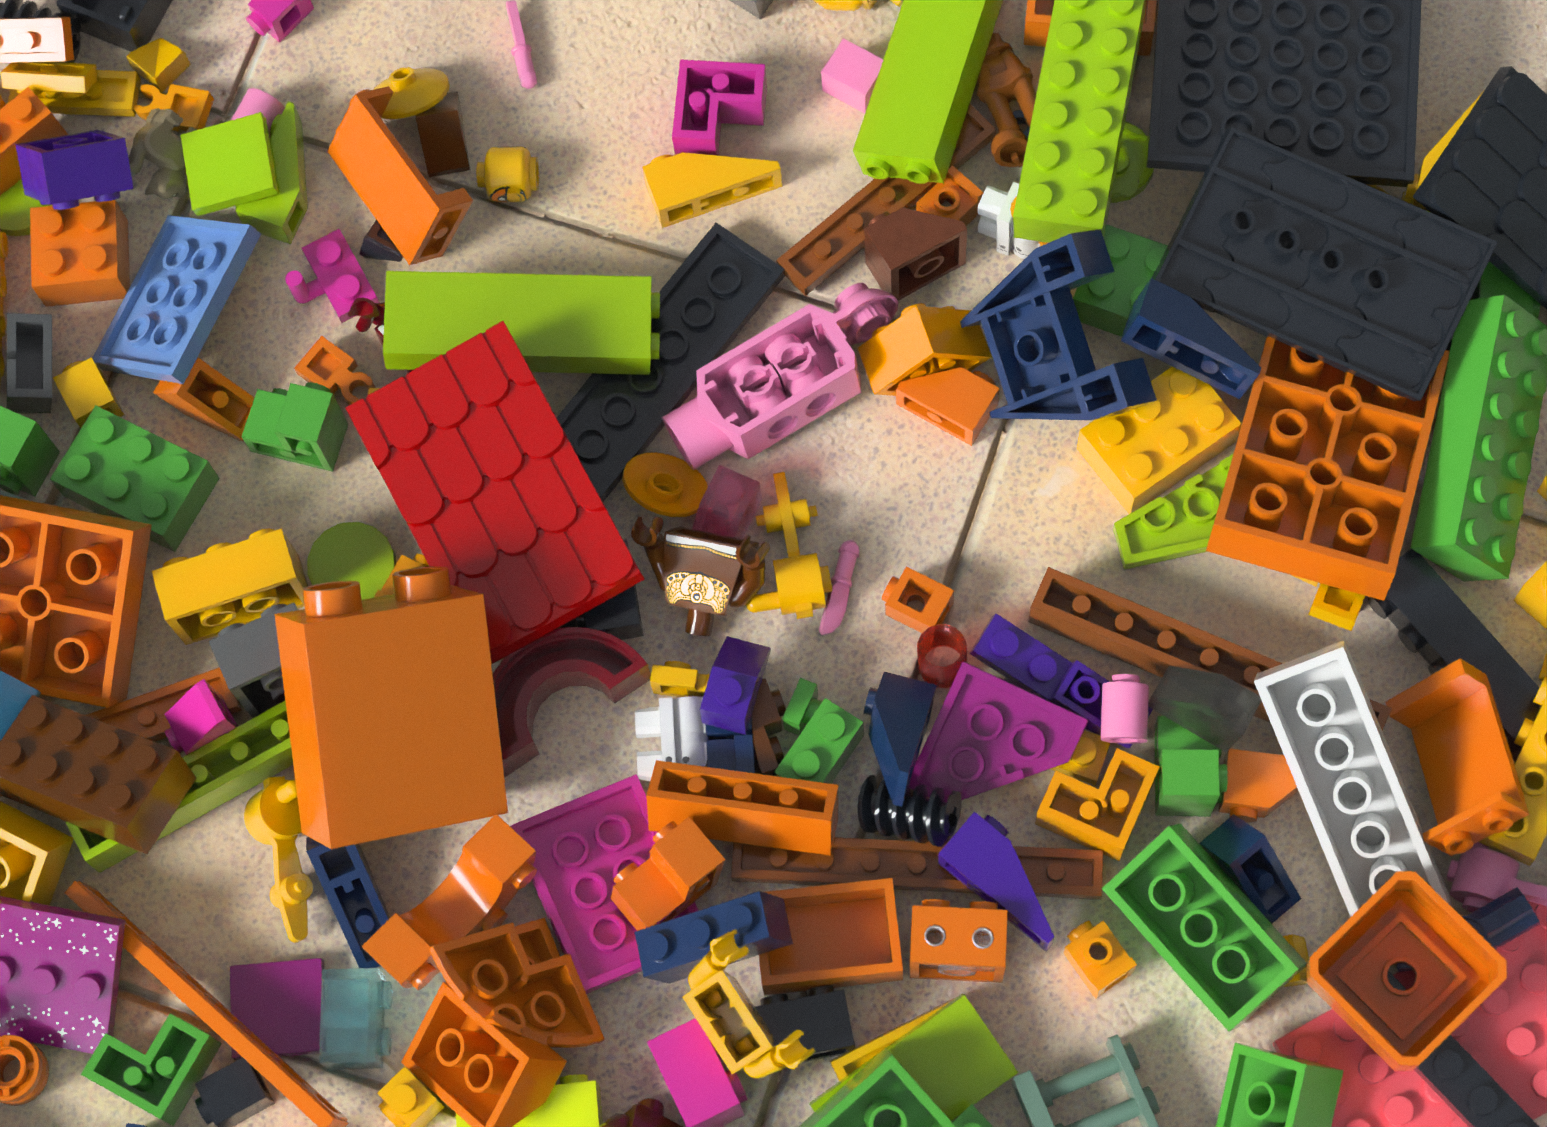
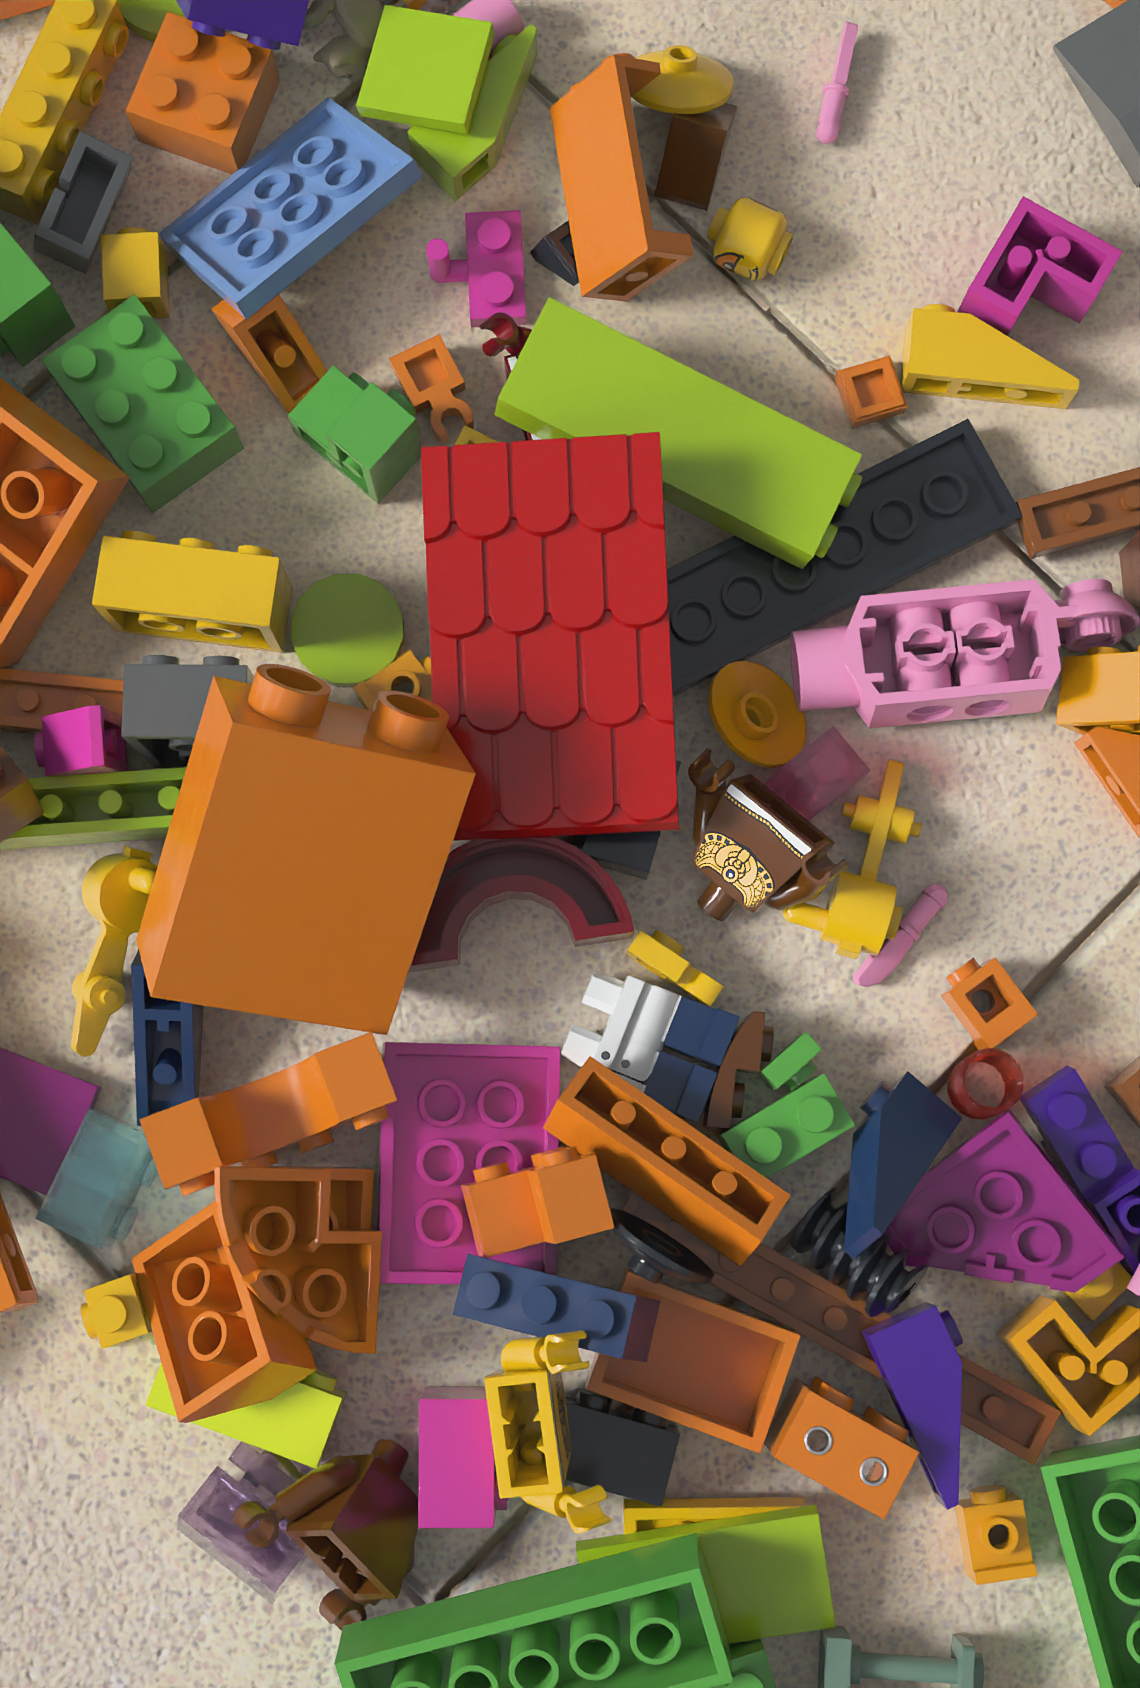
camera: 15 degrees right, 10 degrees up
(641, 237) = (870, 392): none -> orange tile
(734, 685) = (727, 1006): dark purple slope -> none
(766, 872) = (657, 1252): none -> black dish

